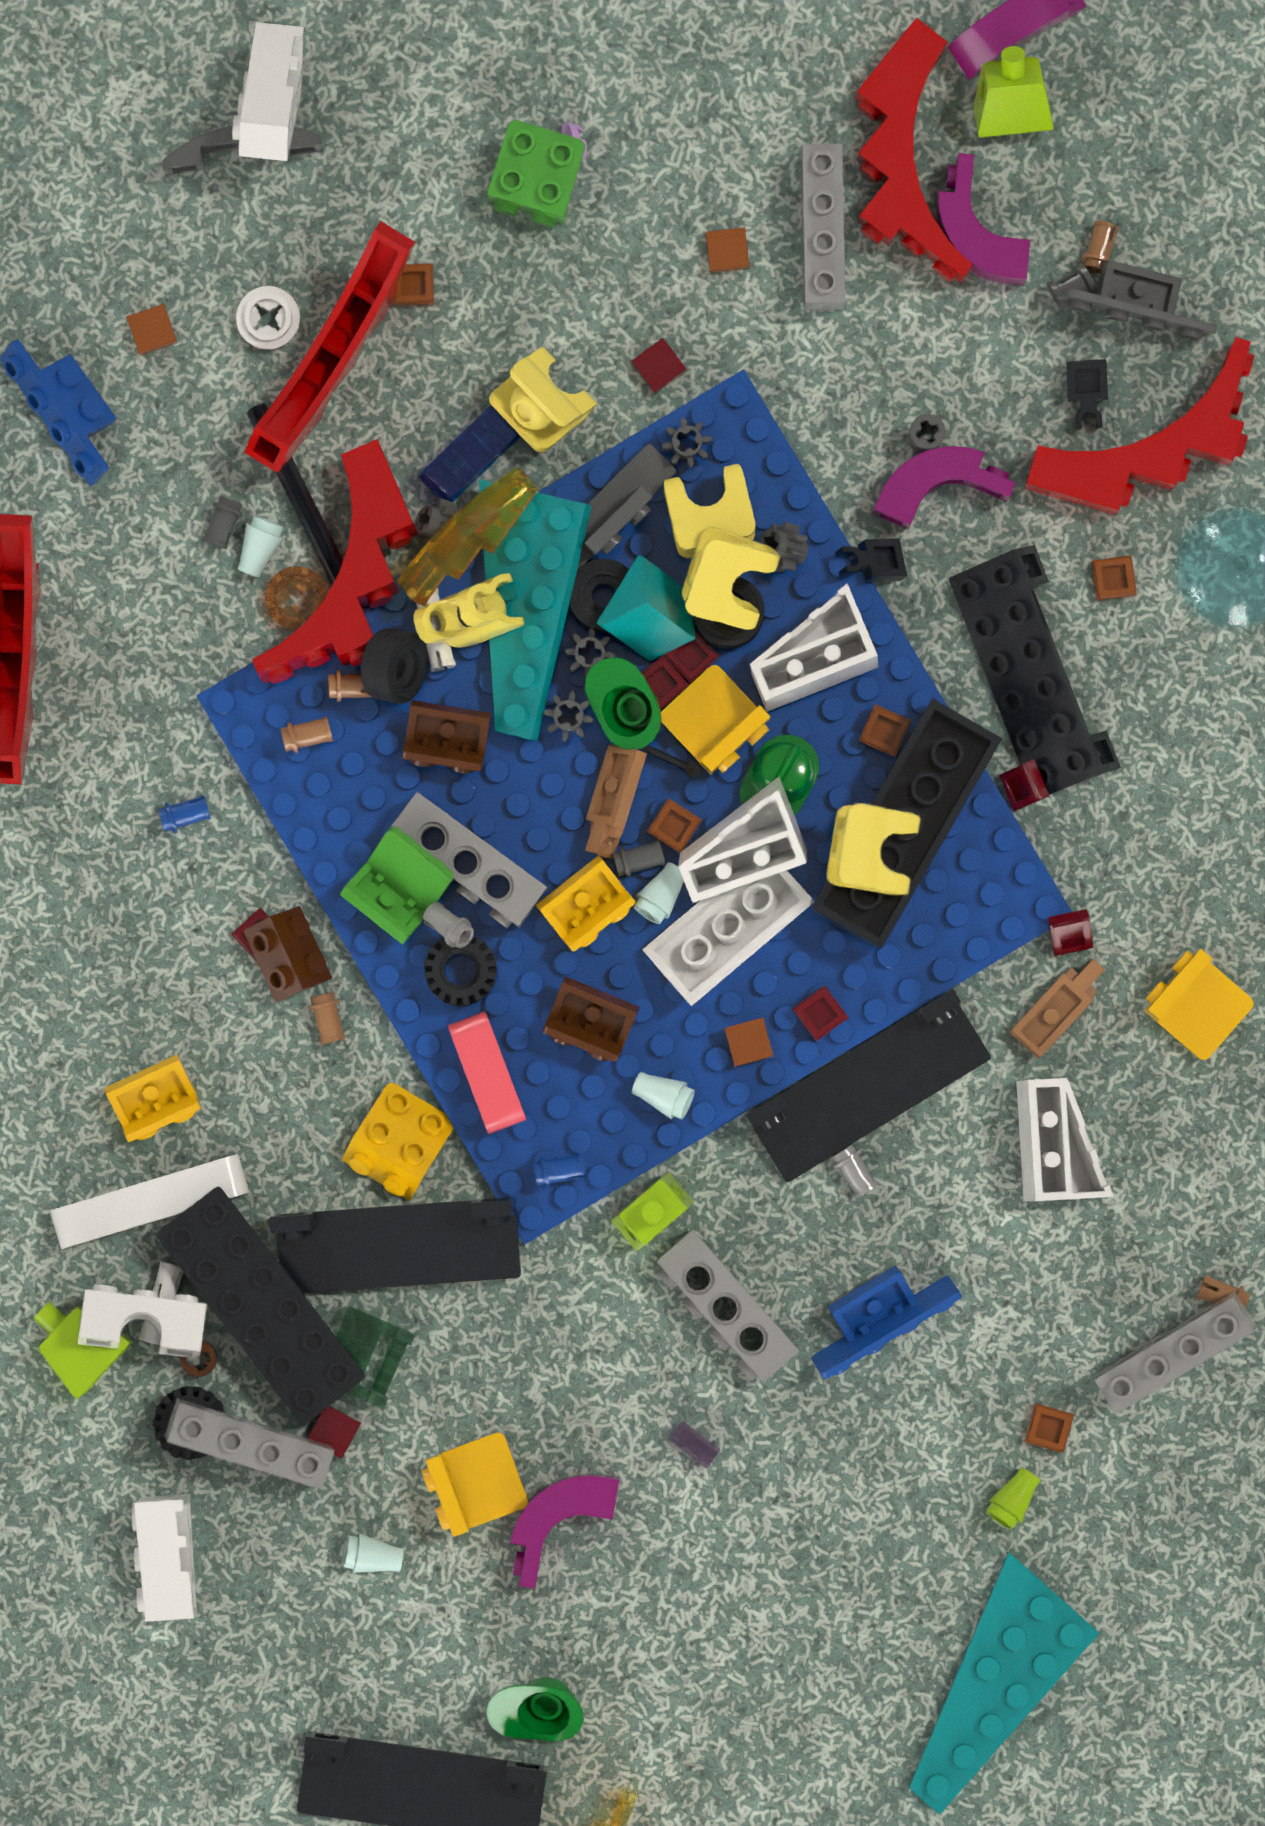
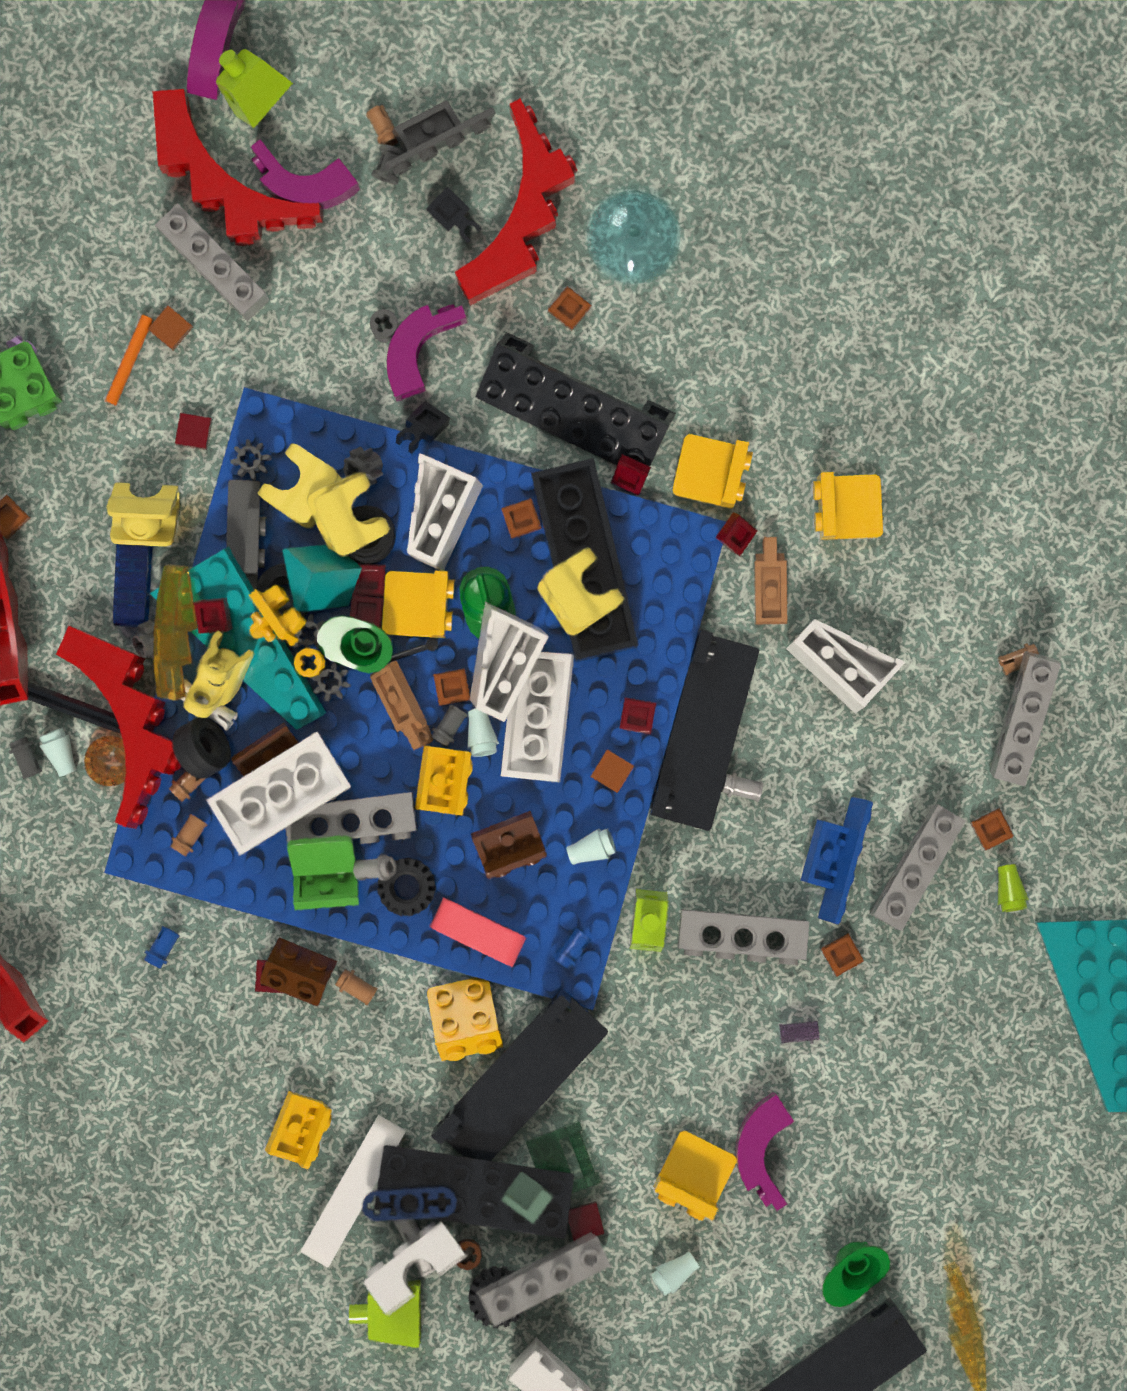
camera: 45 degrees left, 0 degrees up
(210, 1286) = (384, 1195): none -> dark blue beam
(305, 1354) = (527, 1197): none -> sand green panel
(426, 774) = (278, 793): none -> white slope
(518, 554) = (212, 615): none -> dark red tile
(556, 673) = (319, 661): none -> yellow bush
(574, 626) = (283, 625): none -> yellow hips
(661, 244) = (128, 360): none -> orange bar
(801, 1411) = (842, 954): none -> dark orange tile
(946, 1396) = (917, 867): none -> light grey brick
(1102, 852) = (712, 470): none -> yellow bracket

